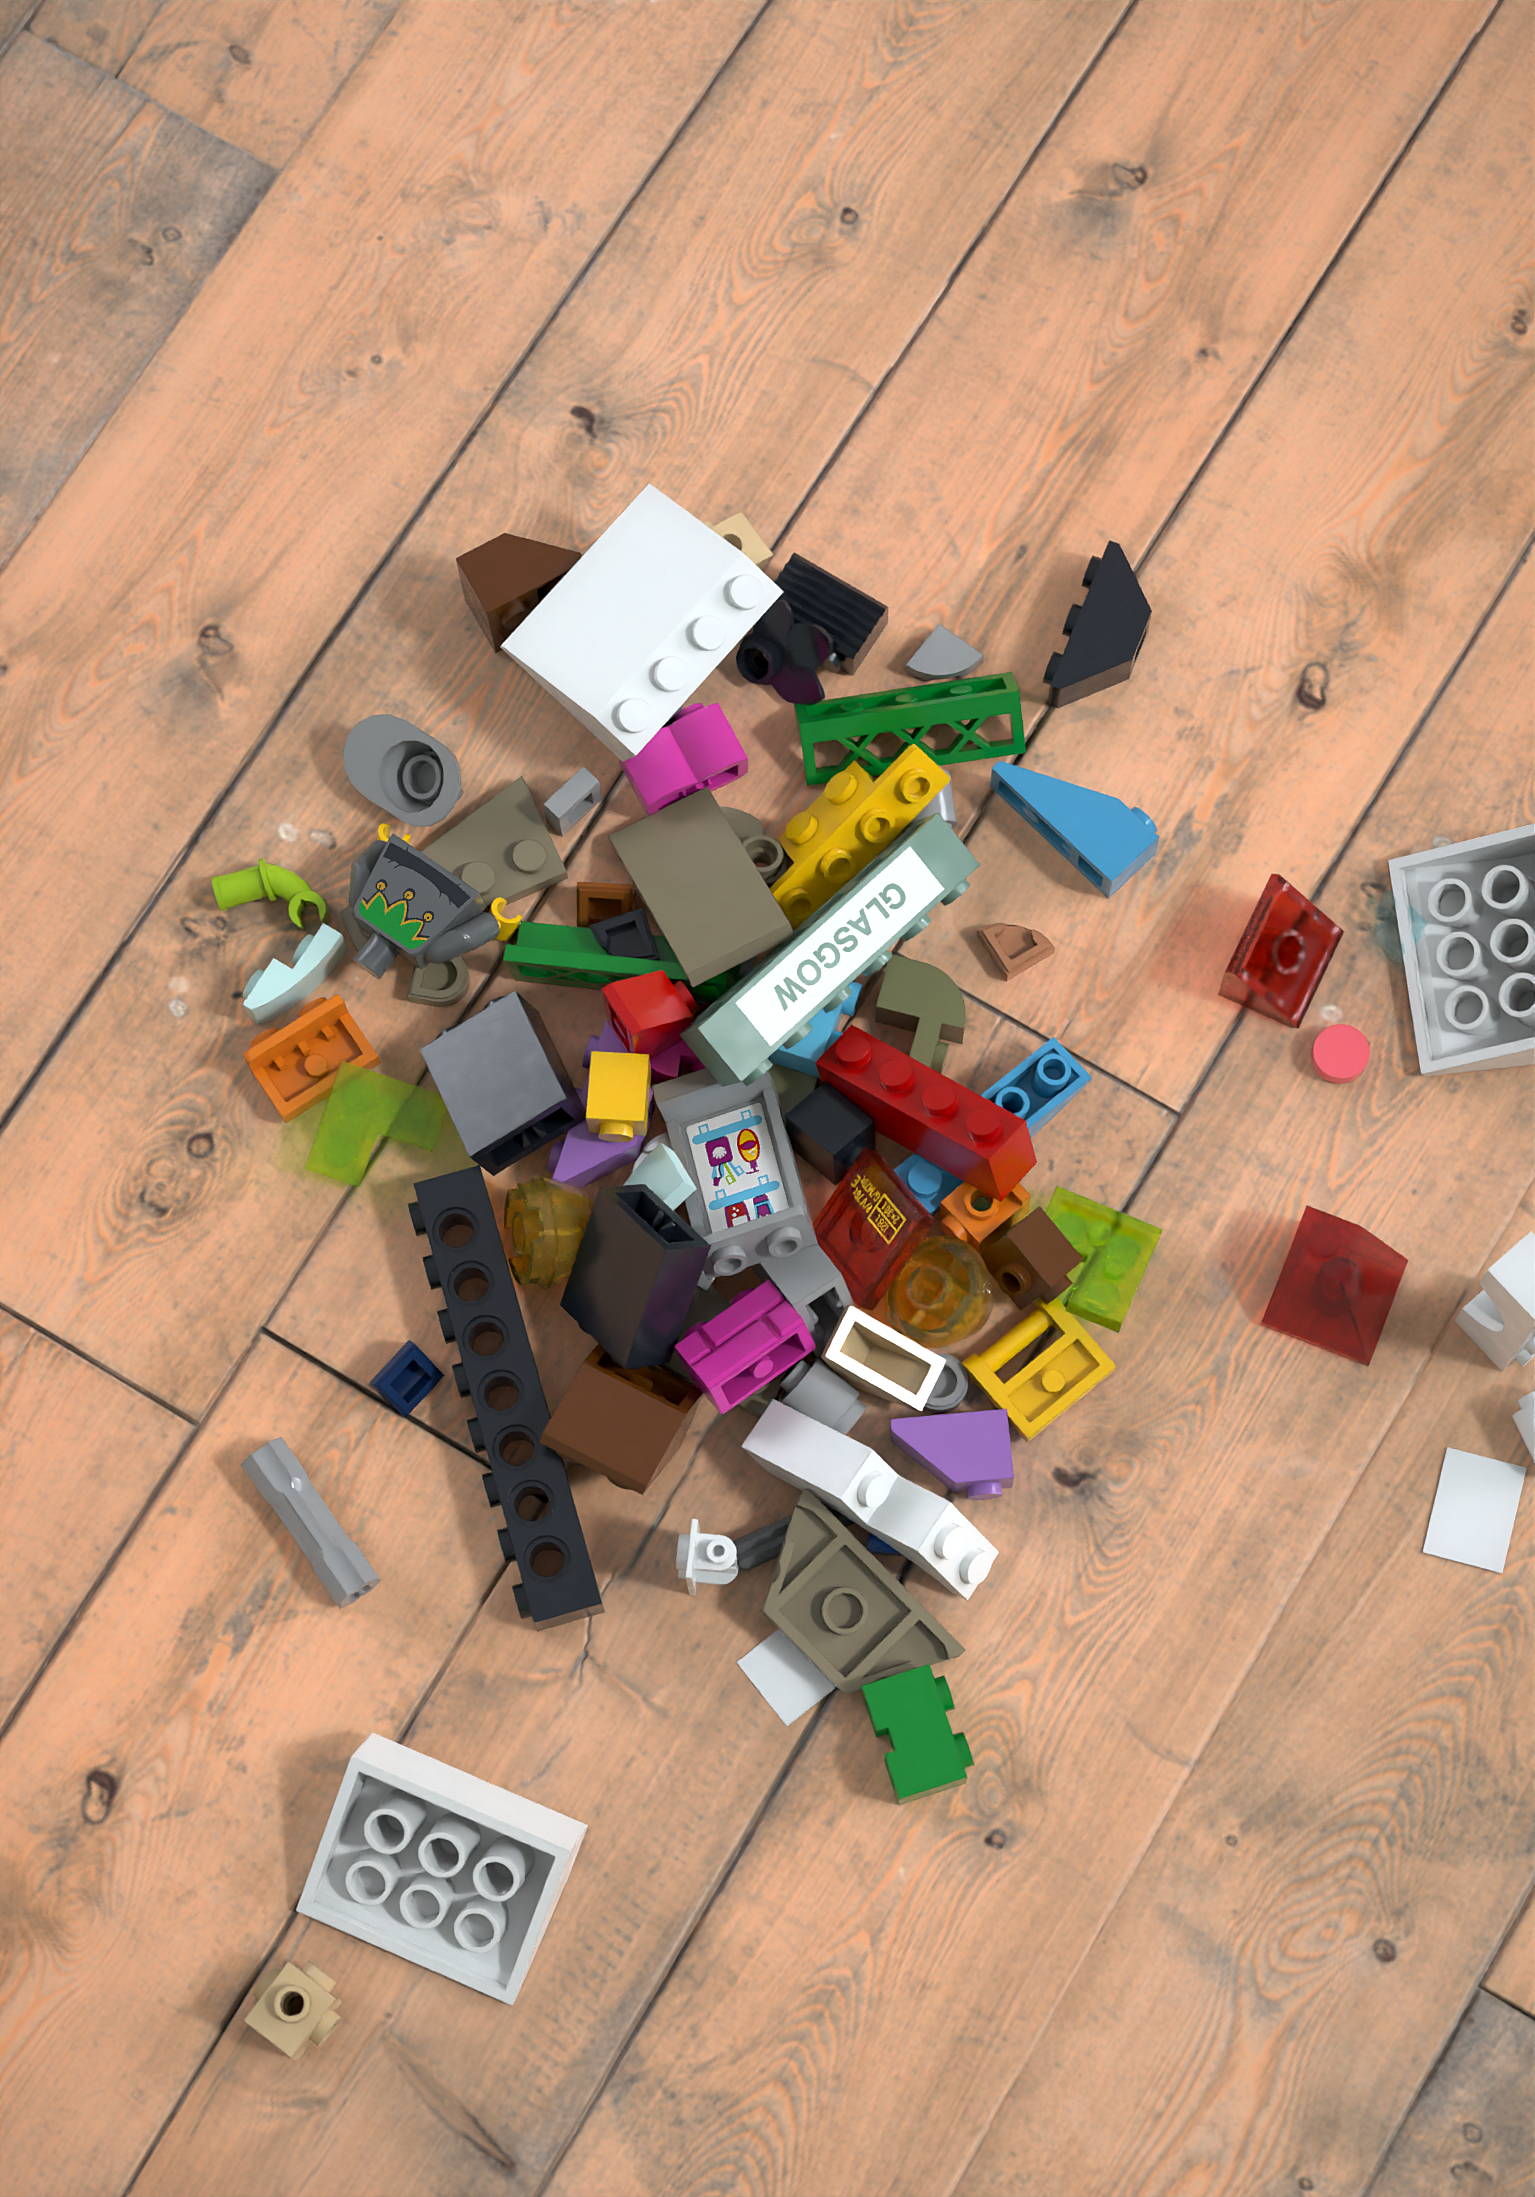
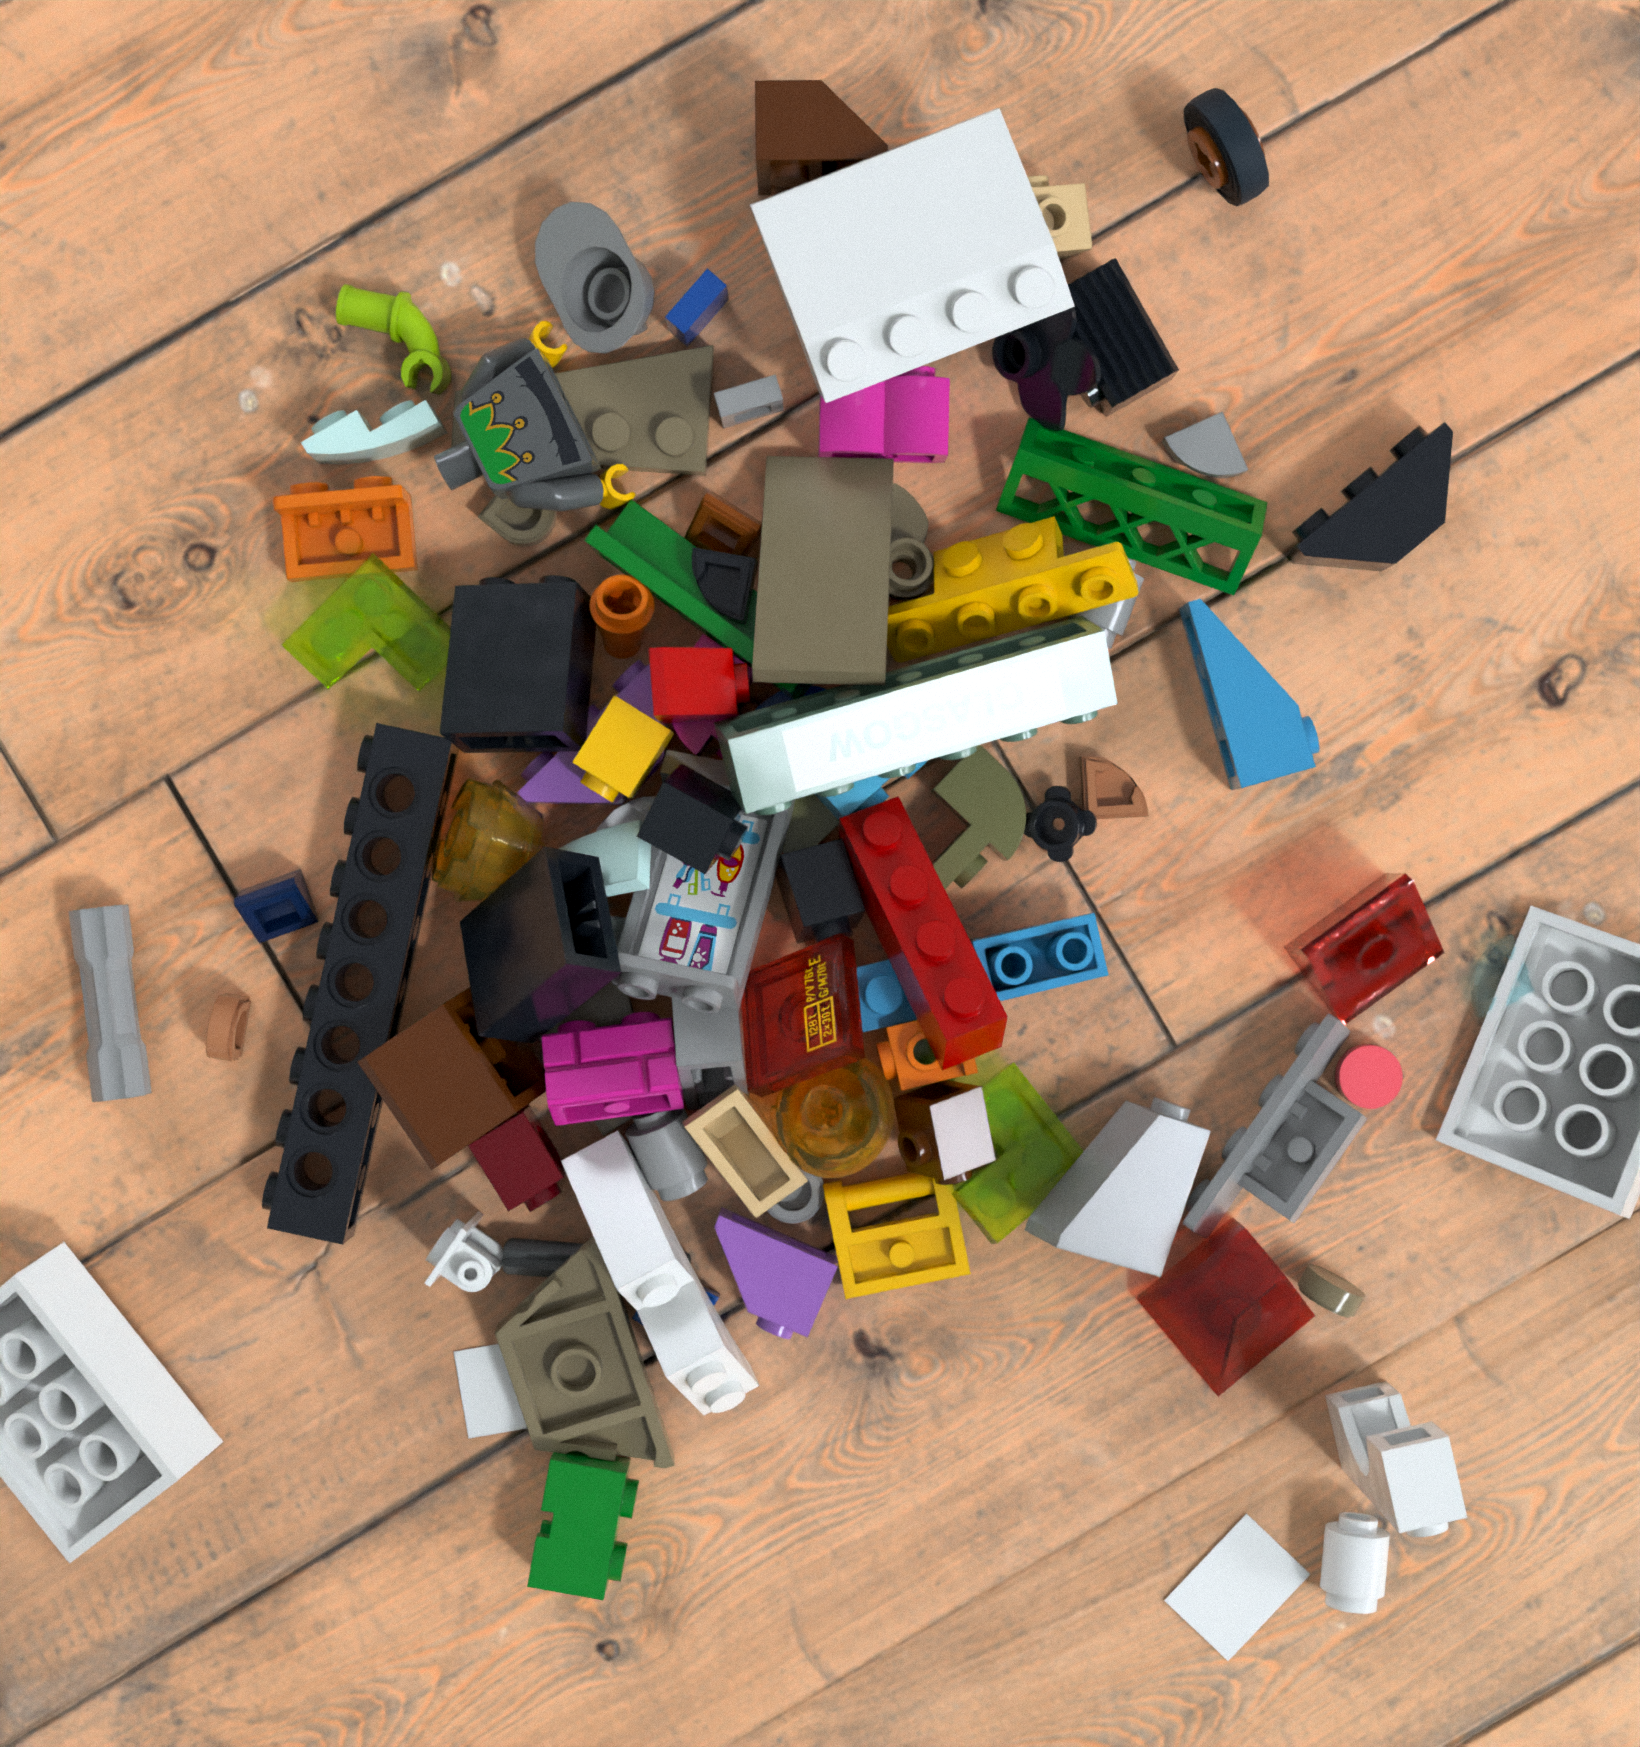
camera: 25 degrees right, 15 degrees up
(417, 1493) = (227, 1027): none -> nougat tile
(495, 754) = (697, 307): none -> blue tile
(561, 1003) = (622, 613): none -> orange cone
(704, 1118) = (694, 820): none -> black brick
(708, 1470) = (520, 1161): none -> dark red brick
(832, 433) = (1226, 146): none -> black wheel
(1002, 980) = (1041, 824): none -> black plate
(1200, 1232) = (1126, 1188): none -> slope
(1305, 1134) = (1288, 1143): none -> light grey bracket
(1407, 1230) = (1330, 1291): none -> dark tan tile

